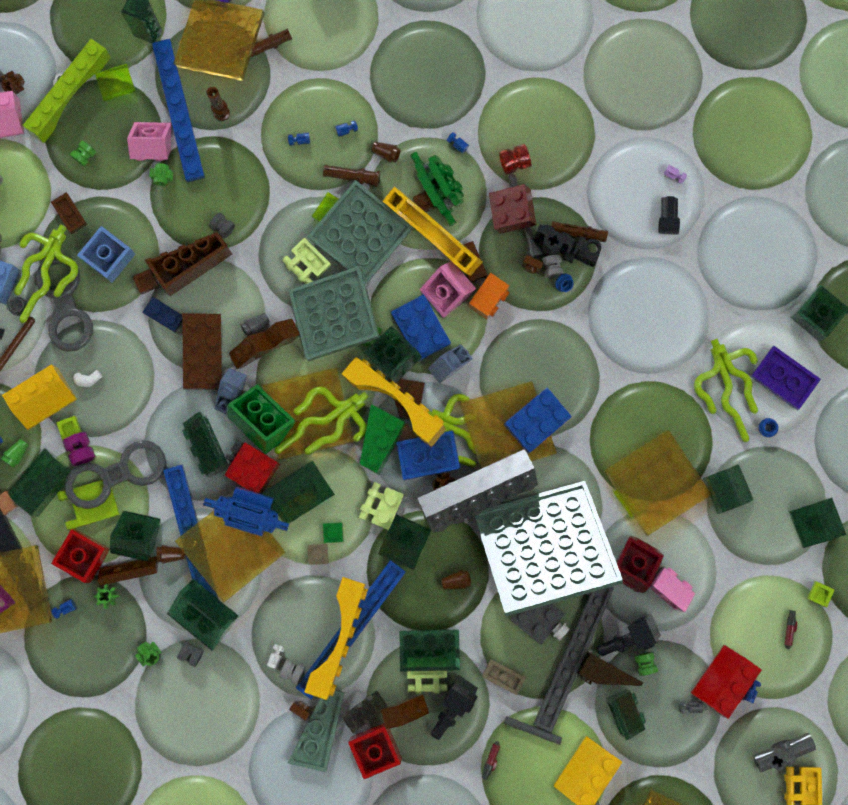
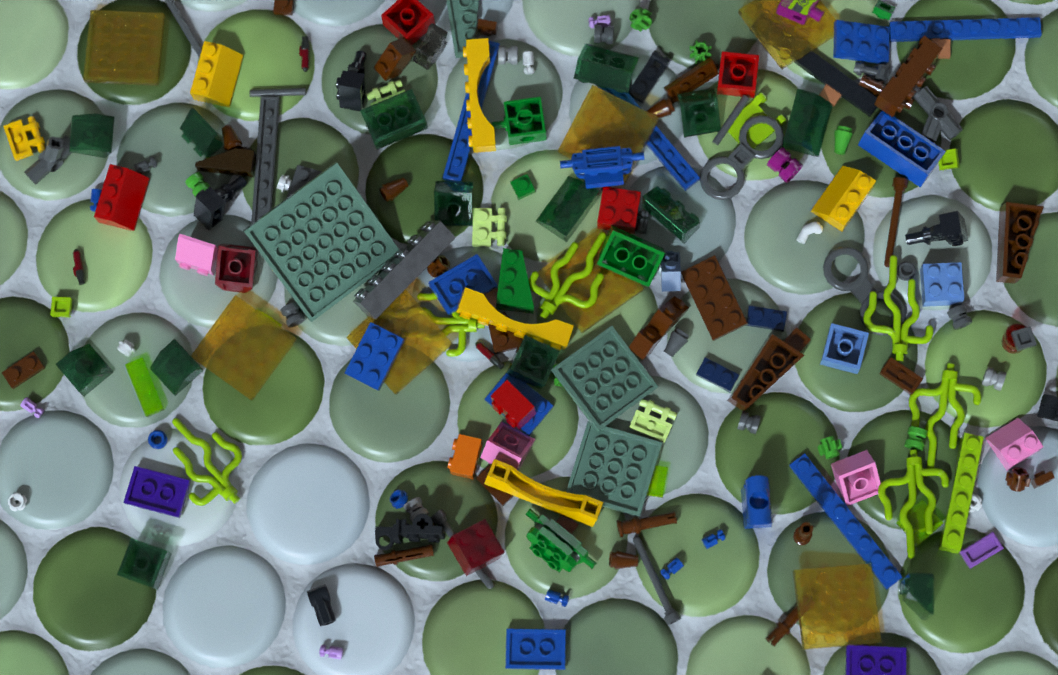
camera: 165 degrees right, 5 degrees down
(36, 185) = (946, 390): none -> lime plant
(64, 608) = (732, 28): blue piece -> none
(68, 427) = (803, 180): lime plate -> none
(72, 40) = (981, 550): none -> medium lavender tile
(102, 121) = (913, 476): none -> lime plant
(109, 515) = (730, 120): none -> dark grey bar
(164, 593) = (649, 77): none -> black plate
(186, 670) = (601, 20): none -> lavender piece
(230, 281) = (717, 375): none -> dark blue plate
(248, 143) = (756, 503): none -> blue piece
(305, 596) = (523, 121): none -> green piece
(318, 554) = (528, 163): dark tan plate -> none
(364, 88) = (671, 614): none -> dark grey piece
(427, 317) = (513, 405): none -> red brick
(430, 383) = (489, 355): none -> piece
(450, 363) = (477, 378): sand blue slope -> none
(494, 106) = (535, 649): none -> blue plate
(503, 677) = (320, 124): dark tan plate -> none
(515, 159) = (493, 600): clear red wheel -> none
(532, 265) = (436, 503): reddish brown plate -> none
(597, 698) = (230, 138): none -> reddish brown cone
(600, 494) = (292, 314): none -> dark grey wheel
(736, 760) = (91, 135): none -> clear green slope
(764, 483) = (144, 387): none -> clear neon green plate
(770, 528) = (126, 347): none -> white plate

